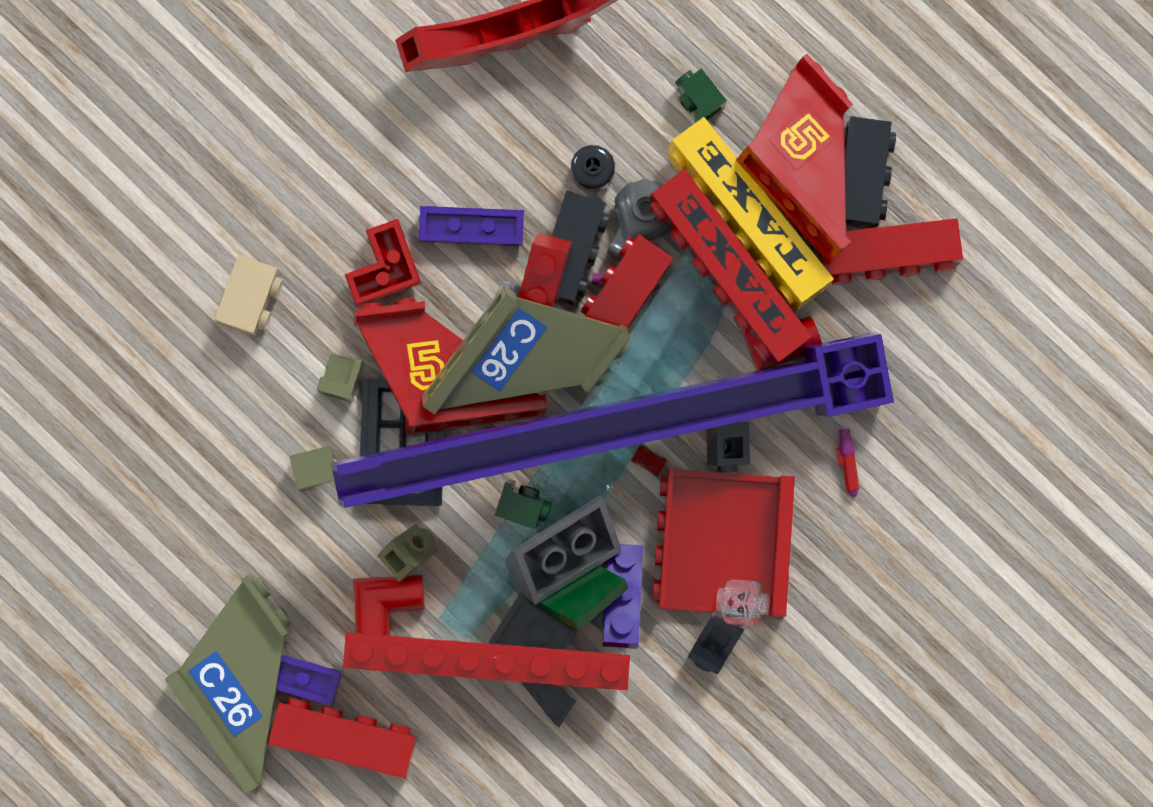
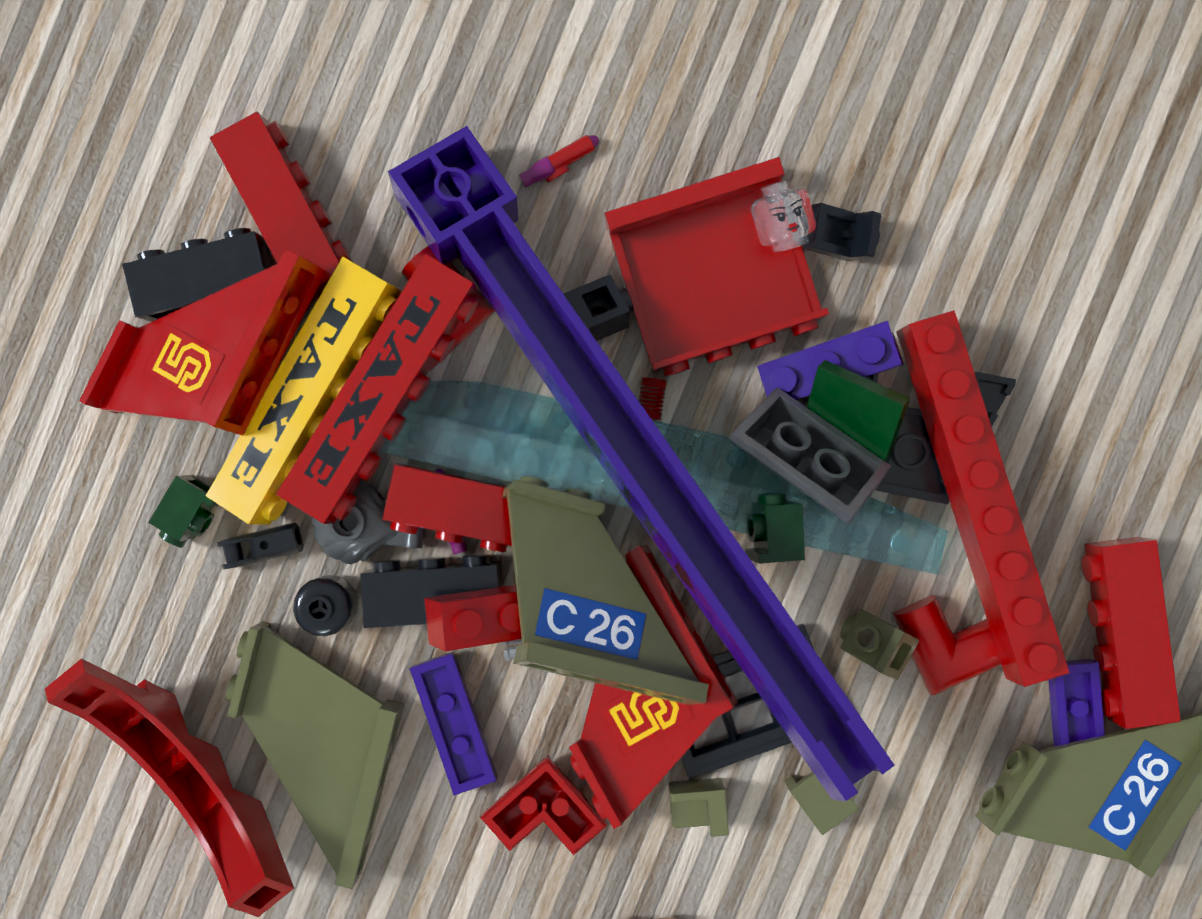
camera: 110 degrees left, 5 degrees up
(496, 127) = (321, 739): none -> olive piece
(653, 142) = (264, 545): none -> black bar

